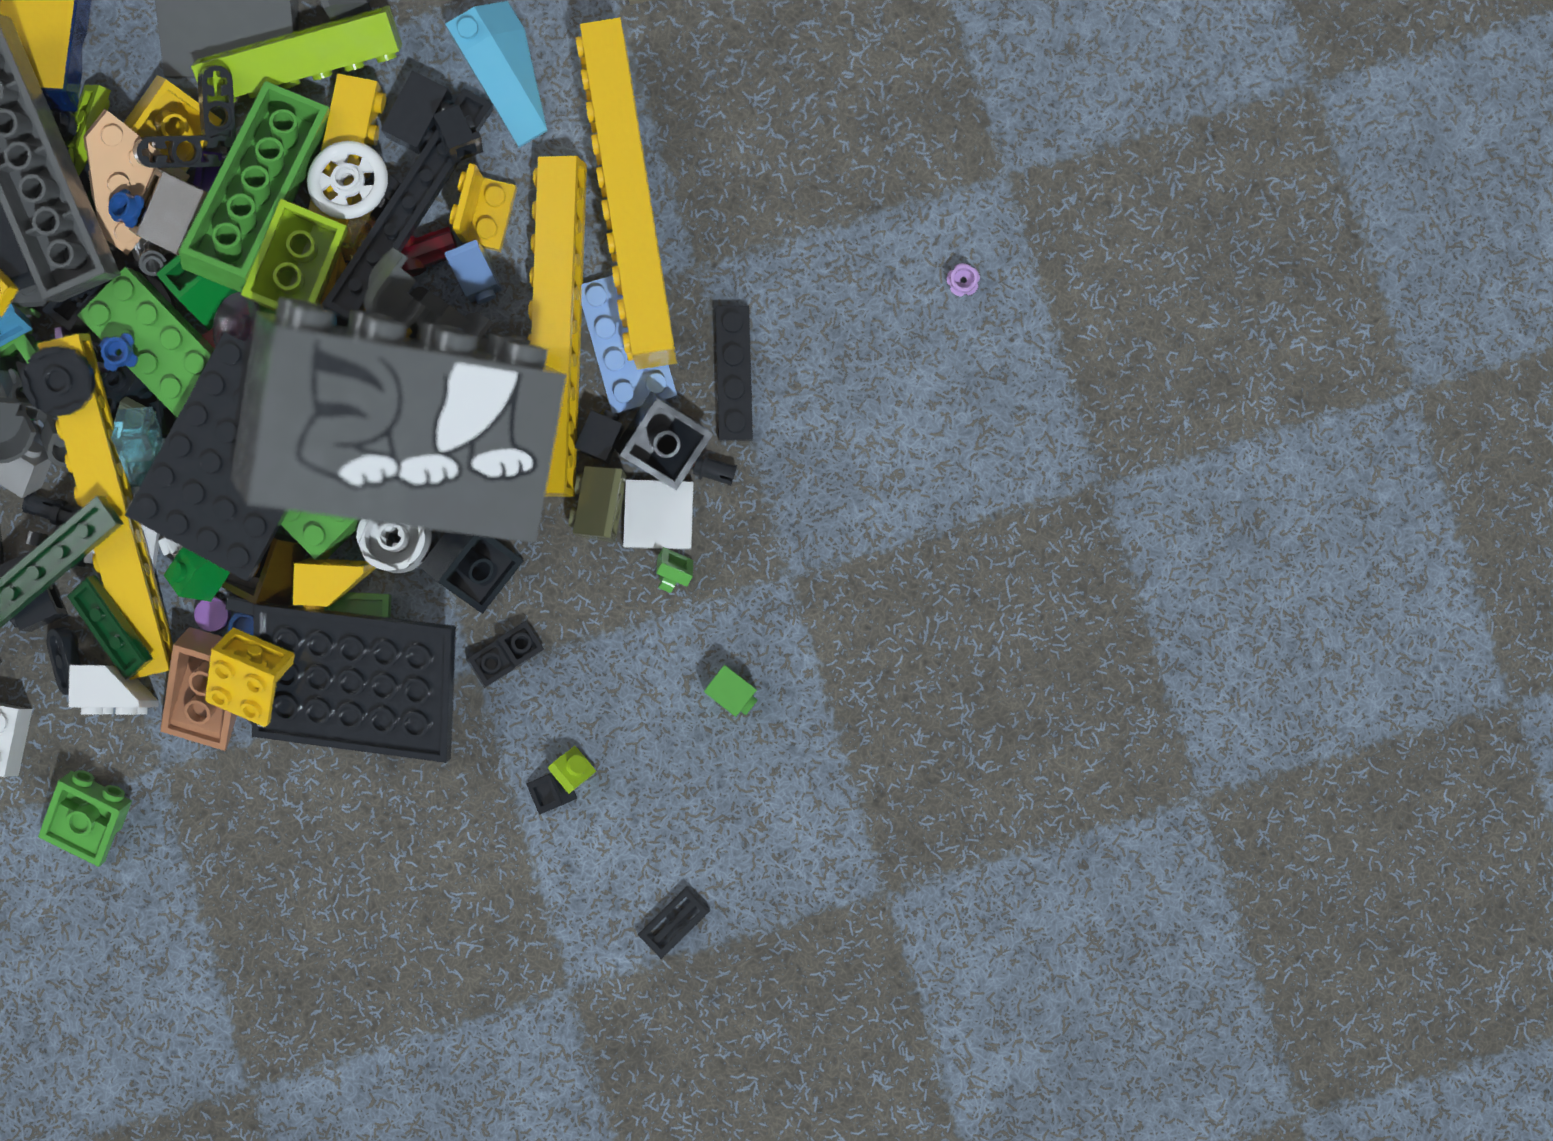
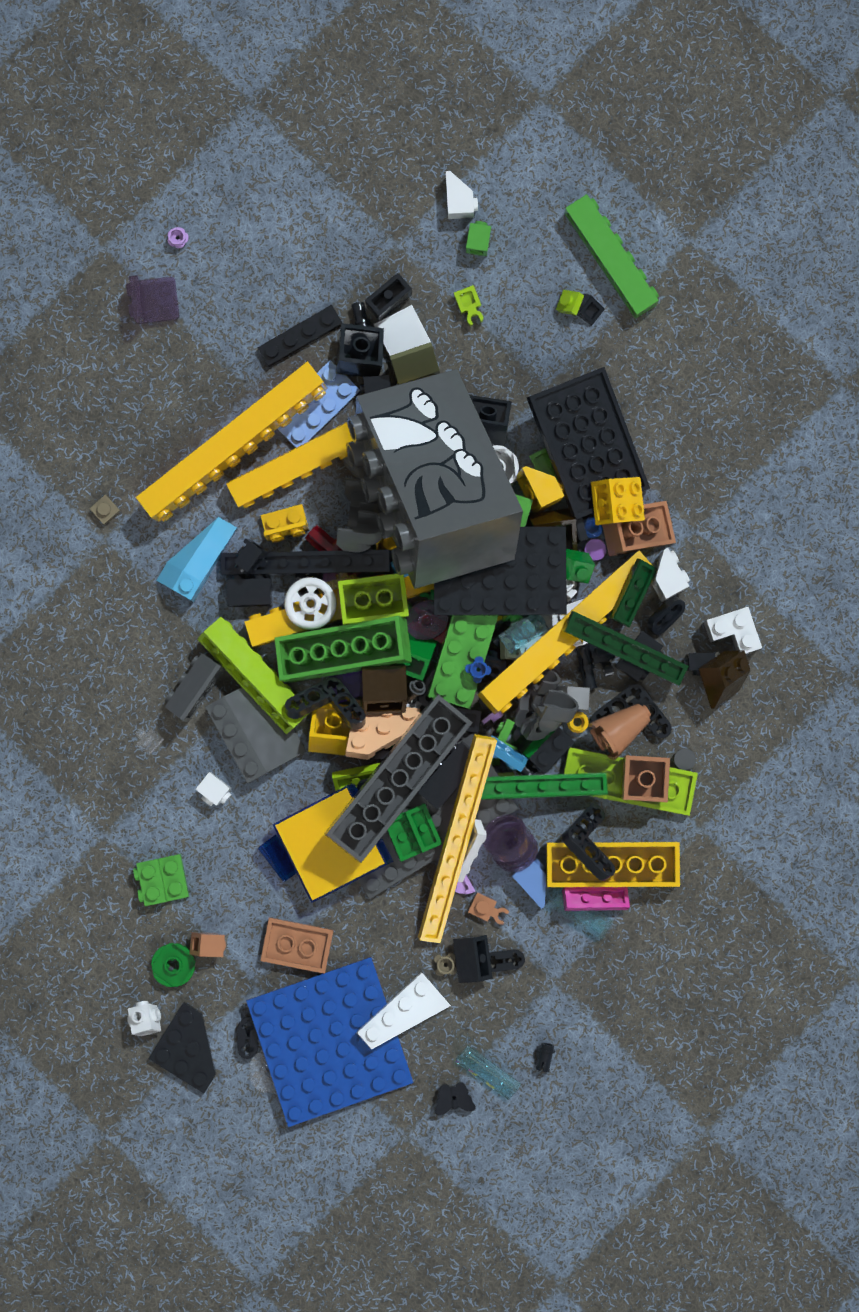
camera: 110 degrees left, 0 degrees up
(58, 381) = (512, 688): black tile -> none
(84, 816) = (745, 554): bright green plate -> none
(126, 207) = (399, 718): blue plate -> none
(474, 272) = (323, 506): medium blue slope -> none
(505, 654) = (526, 375): black slope -> none
(603, 863) = (611, 256): none -> bright green brick
(651, 630) = (468, 302): none -> lime plate
(672, 569) = (428, 306): bright green tile -> none
(694, 901) = (621, 211): black tile -> none
(715, 520) = (388, 297): none -> black brick
(803, 696) = (459, 198): none -> white slope
(893, 198) = (153, 299): none -> clear purple bracket

